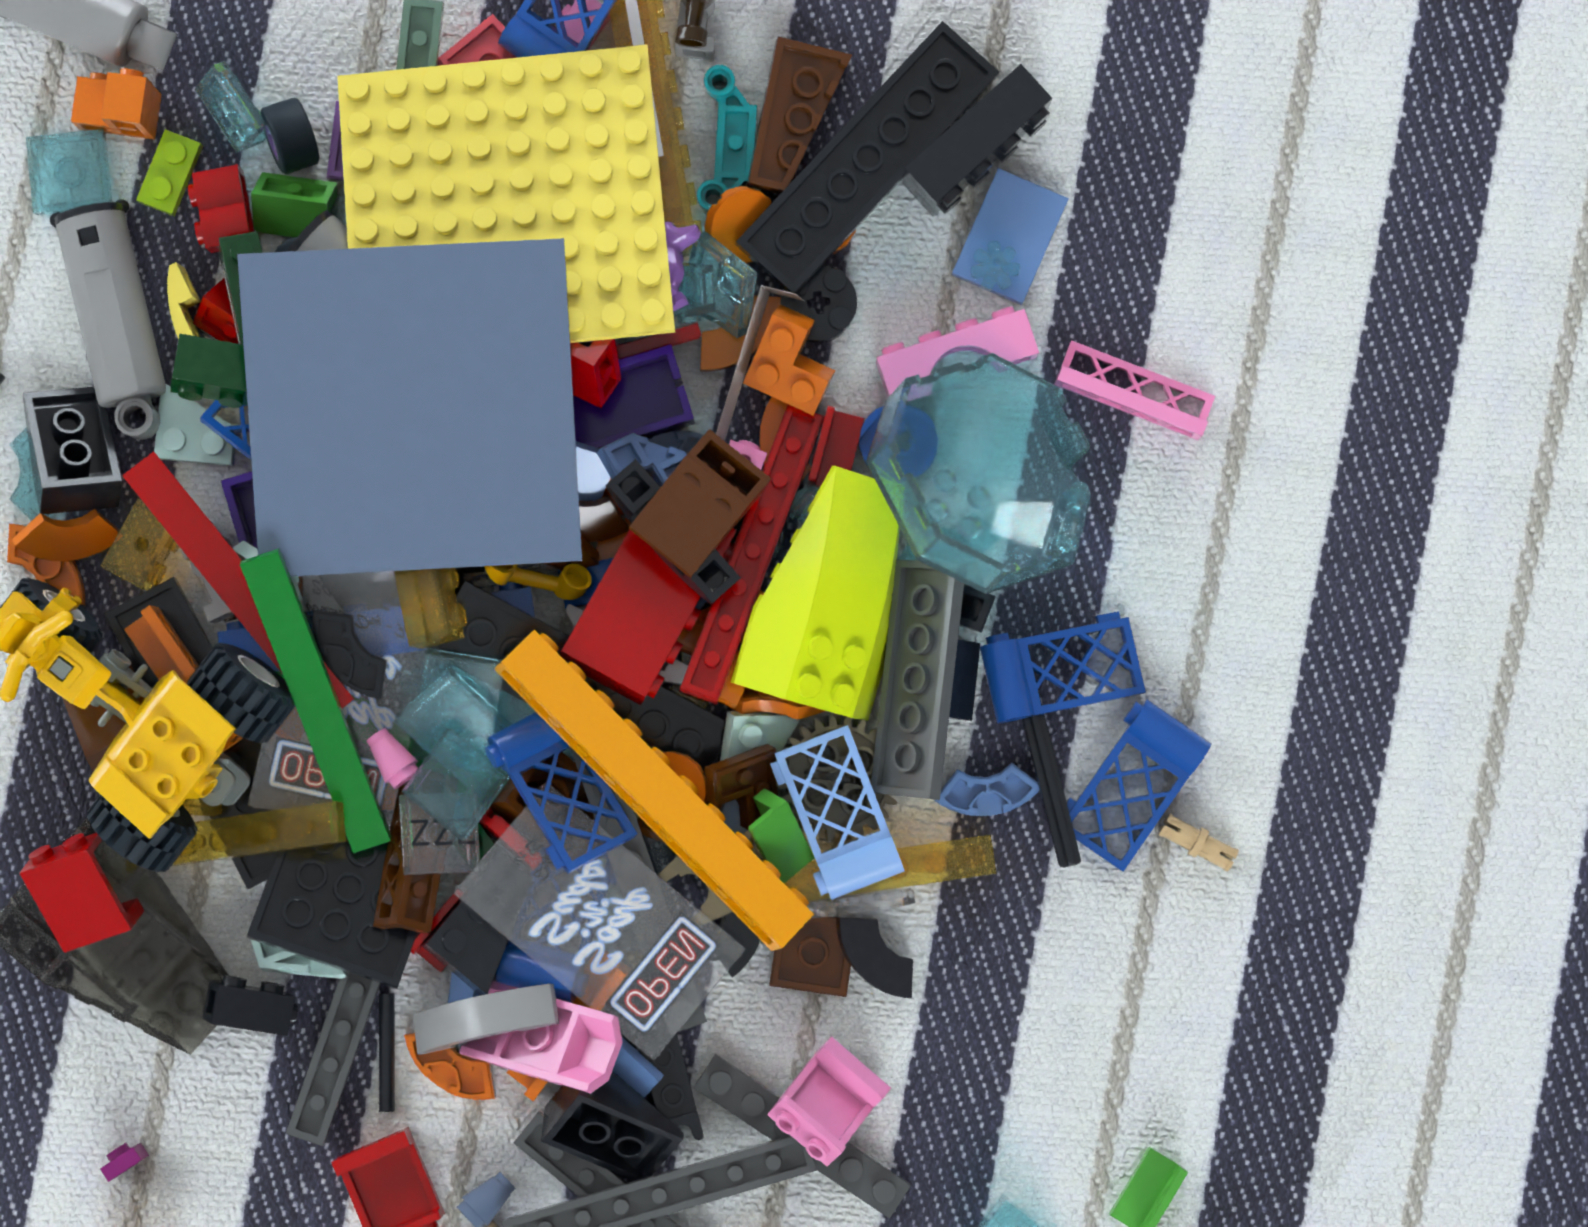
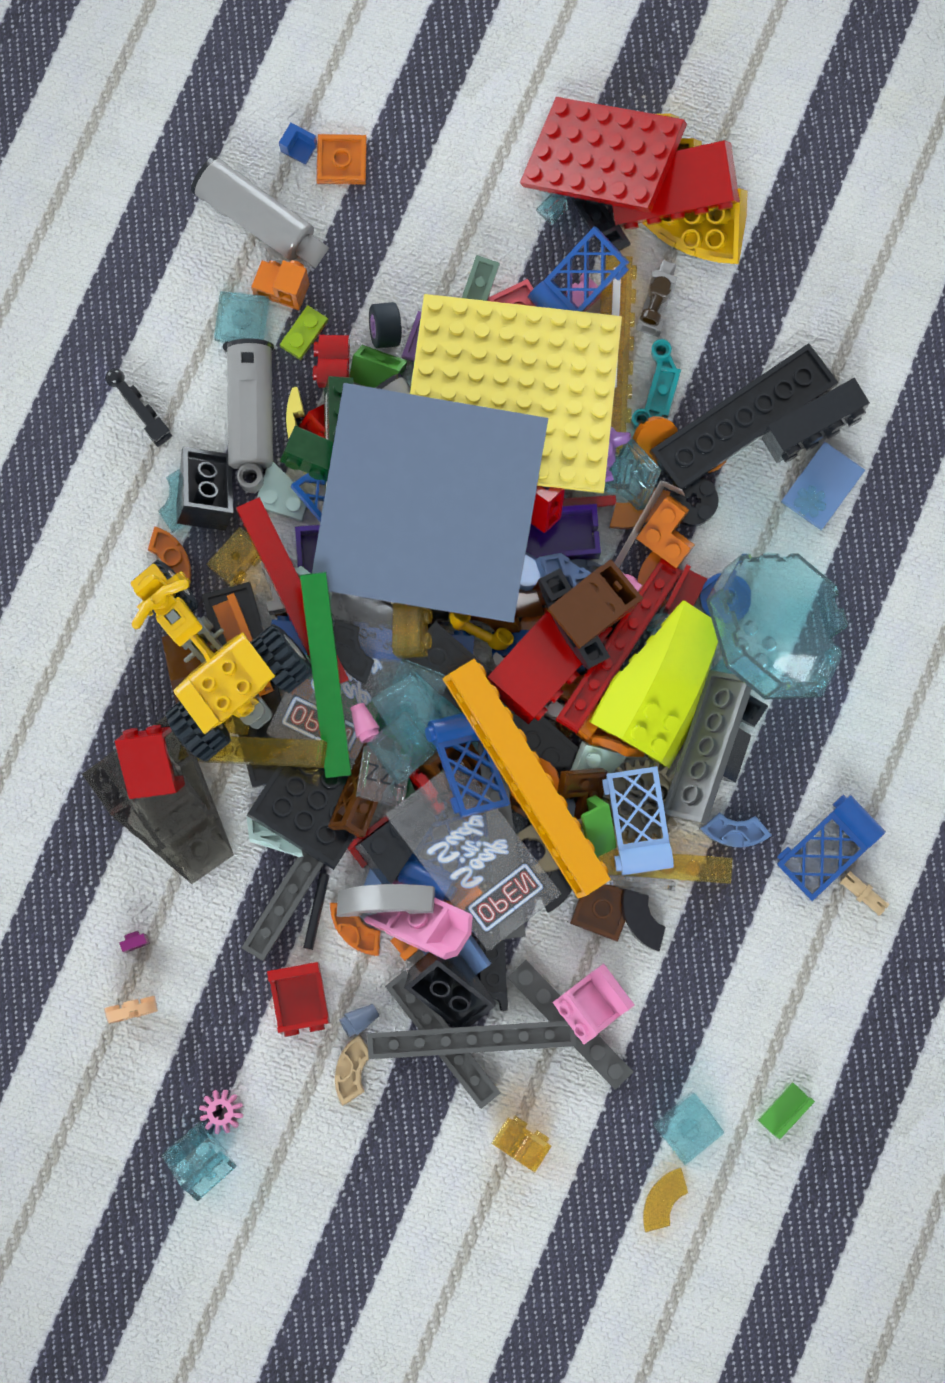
camera: 15 degrees right, 5 degrees down
(66, 539) = (189, 543): orange tile -> none
(231, 107) = (353, 300): clear light blue bracket -> none
(249, 1007) = (237, 861): black brick -> none
(794, 102) = (705, 372): reddish brown wing -> none
(1004, 335) = (808, 544): bright pink arch -> none
(1013, 678) = (768, 758): blue piece -> none
(1051, 790) = (776, 826): black axle -> none
(1135, 402) = (879, 604): bright pink fence -> none

